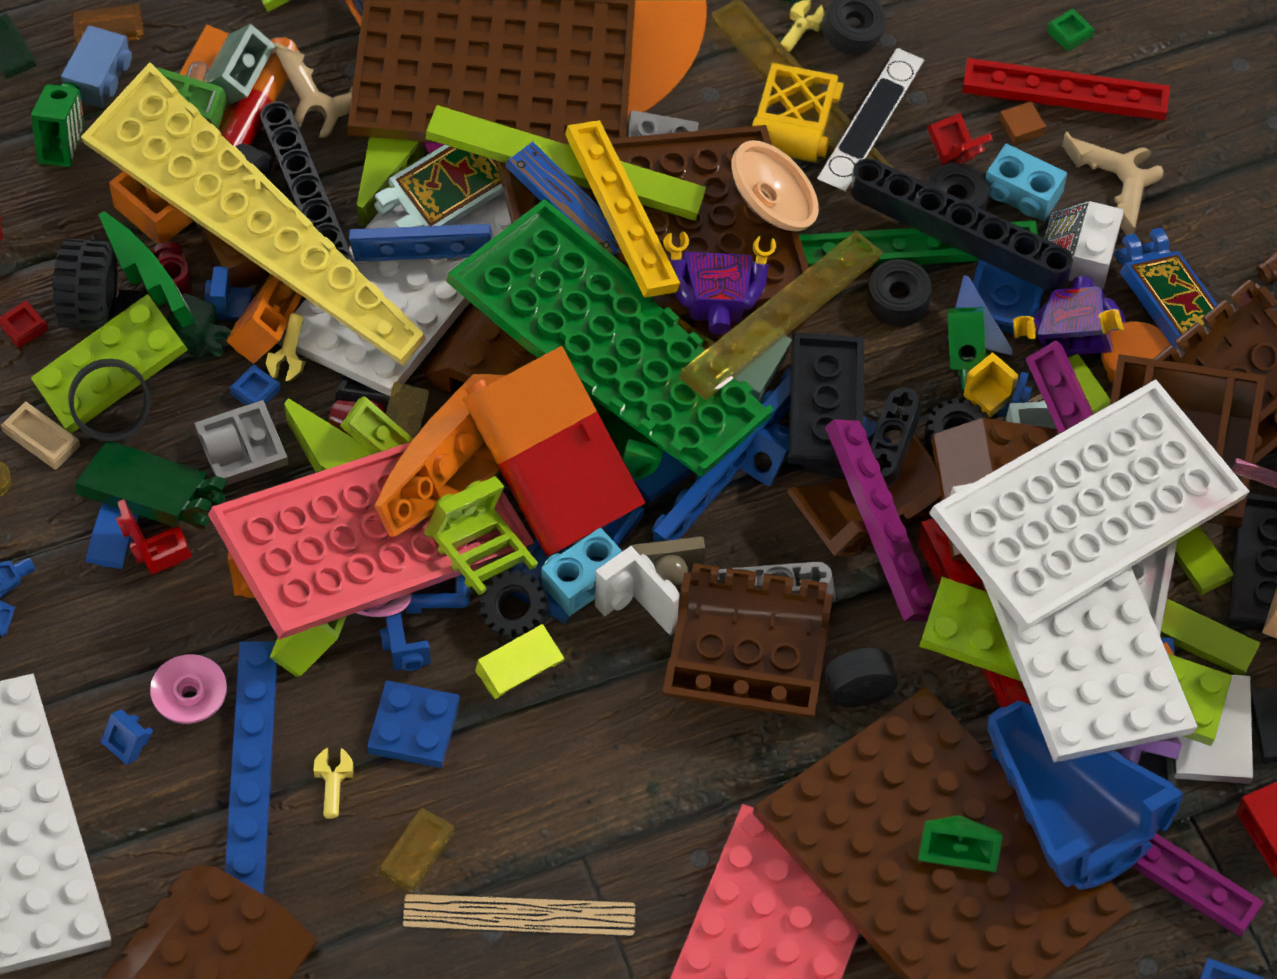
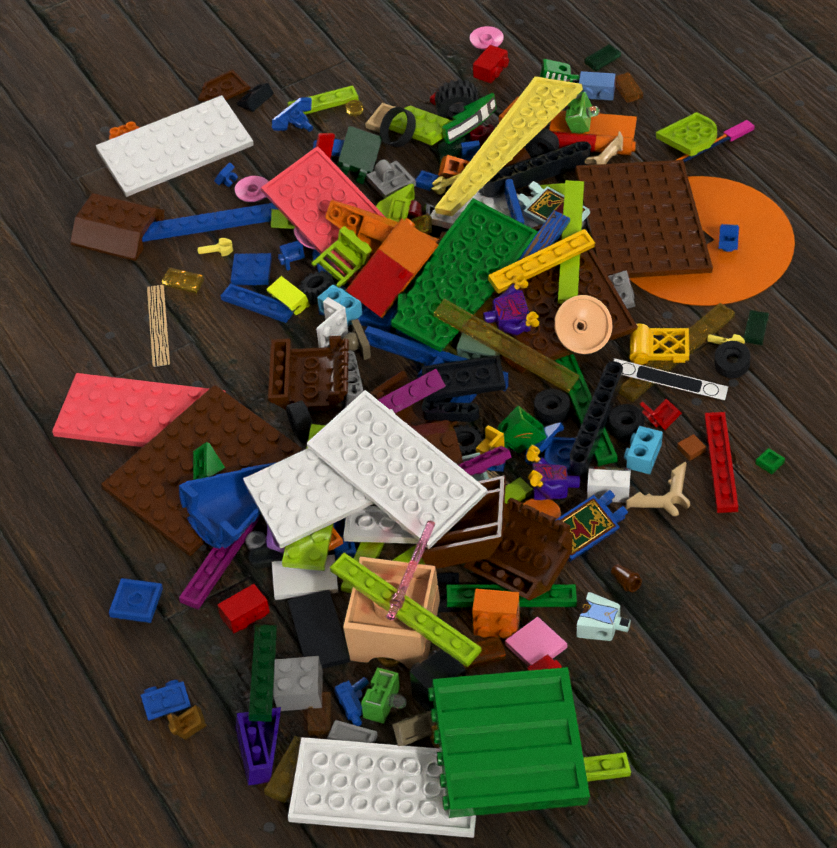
camera: 85 degrees right, 10 degrees down
(240, 62) = (607, 125): sand green brick -> none
(510, 726) = (256, 303): none -> blue tile

